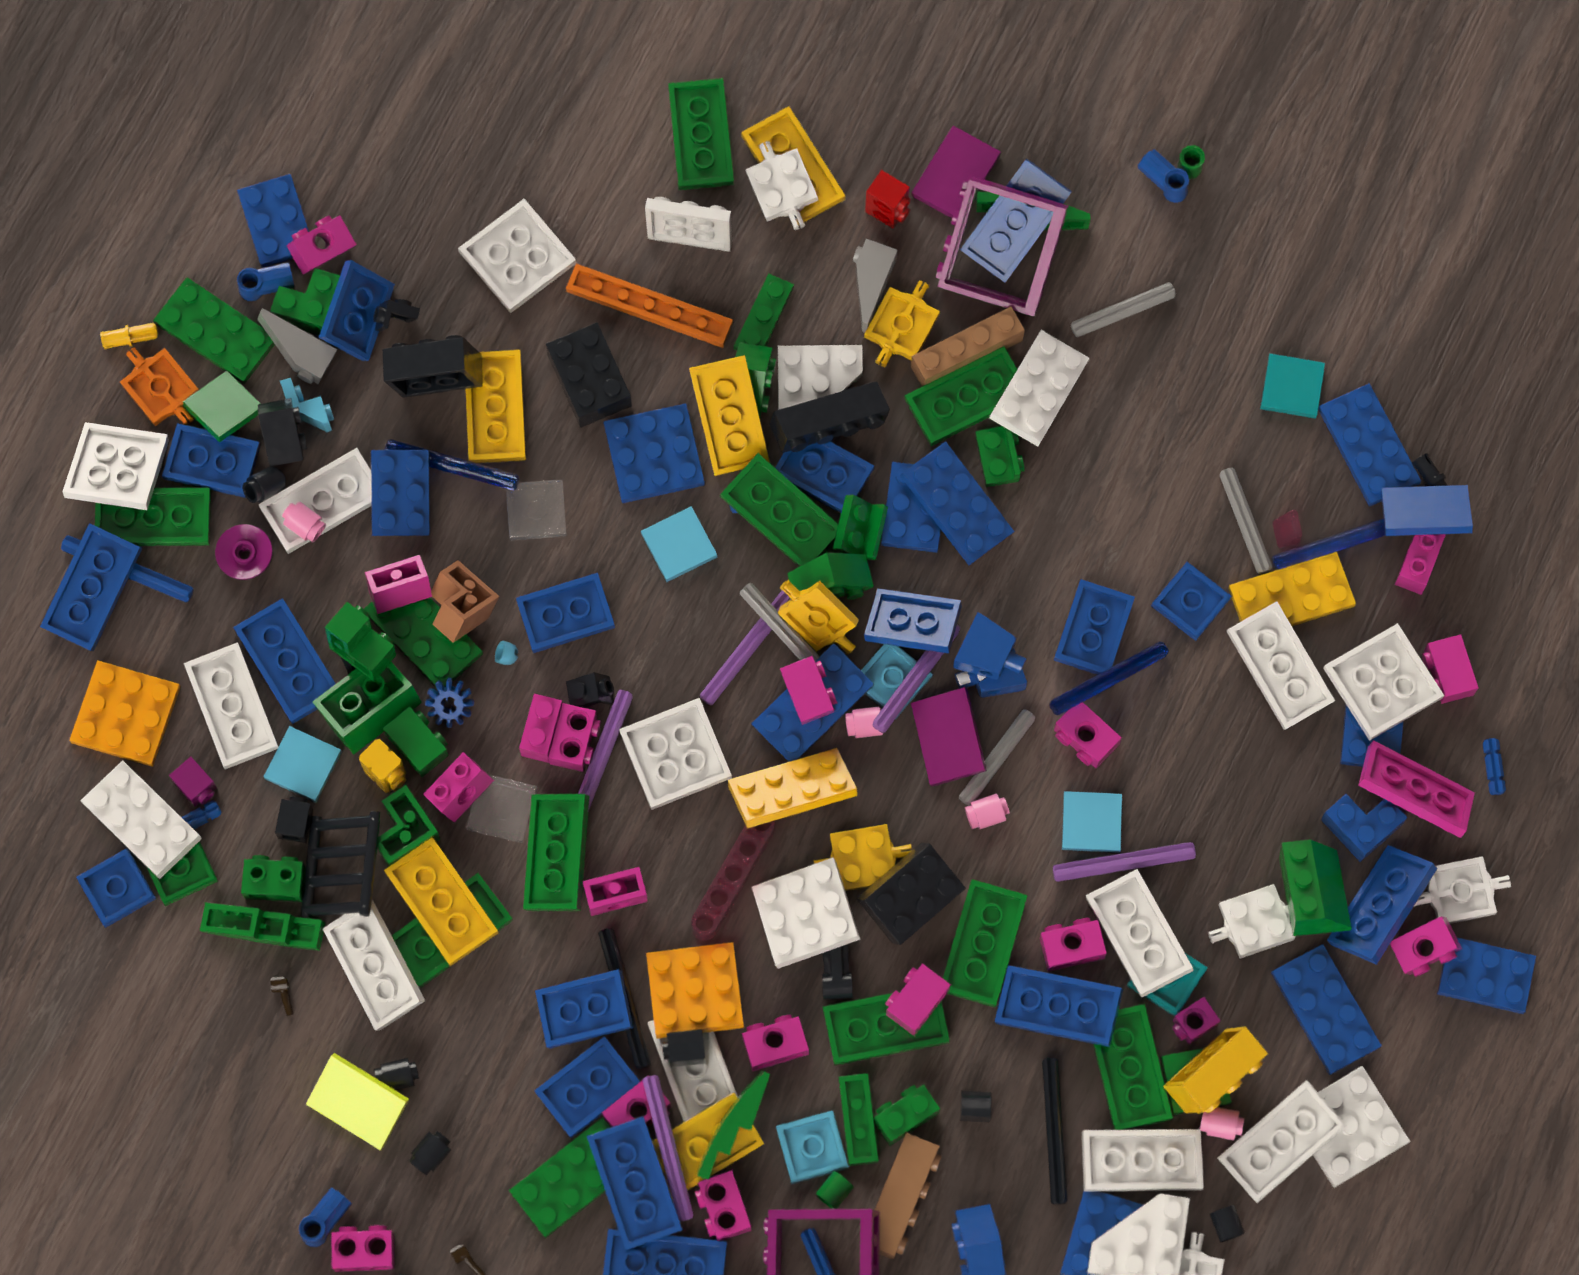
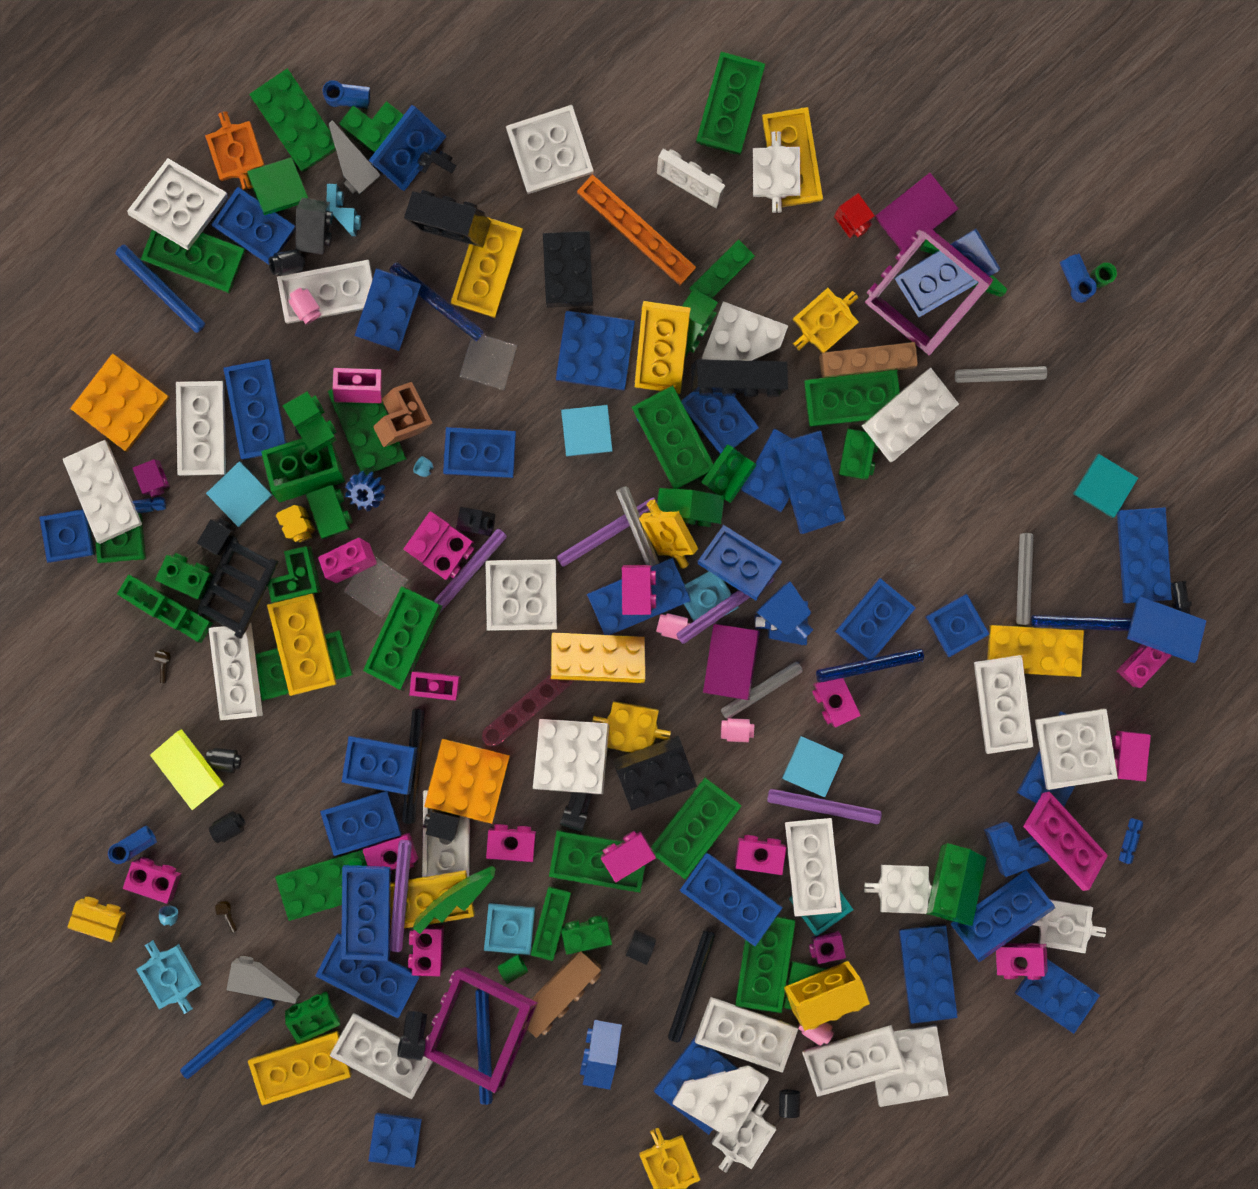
camera: 20 degrees right, 15 degrees up
(91, 587) = (125, 294): blue plate -> none
(129, 335) = (226, 99): yellow axle -> none
(240, 539) = (241, 308): magenta dish -> none
(272, 217) = (373, 47): blue plate -> none
(306, 252) = (413, 84): dark pink brick -> none
(873, 271) = (819, 270): light grey slope -> none
(1287, 529) = (1053, 598): clear pink slope -> none

